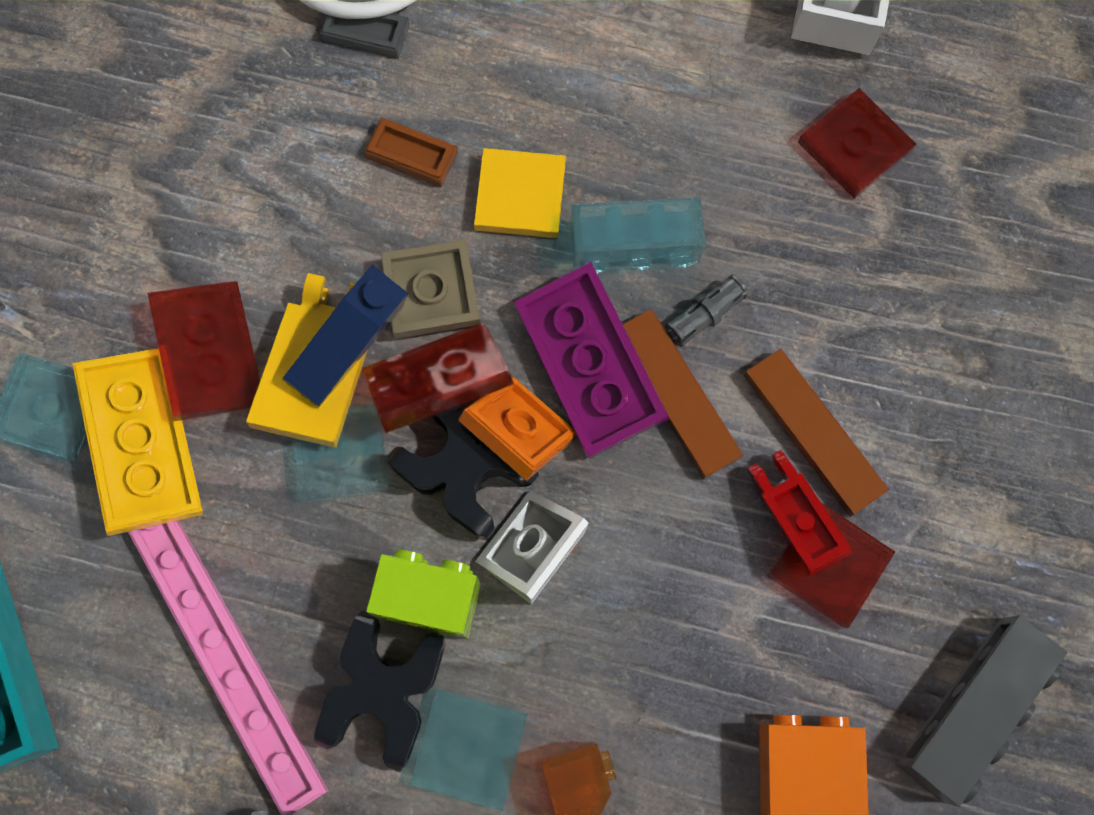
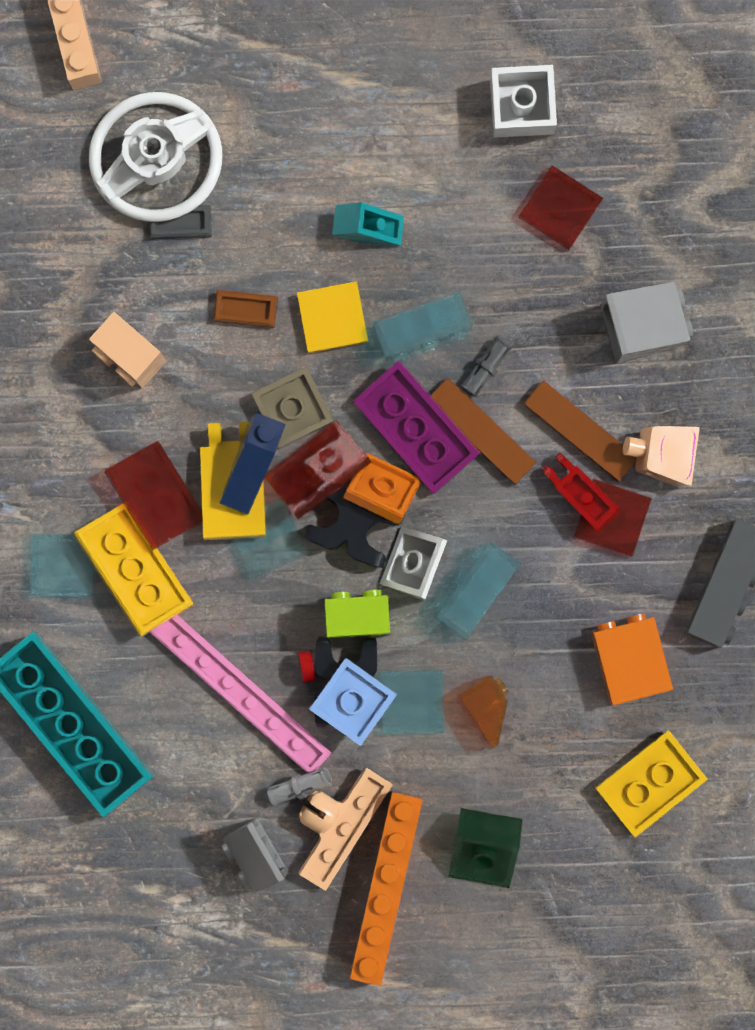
camera: 10 degrees left, 10 degrees up
(231, 149) = (127, 349): none -> light nougat brick
(331, 649) = (306, 666): none -> red tile
(376, 724) = (353, 701): none -> light blue plate
(601, 89) = (367, 224): none -> teal slope
(610, 609) = (476, 589): none -> clear light blue brick
(931, 493) = (665, 453): none -> light nougat torso
(940, 307) = (645, 321): none -> light grey slope

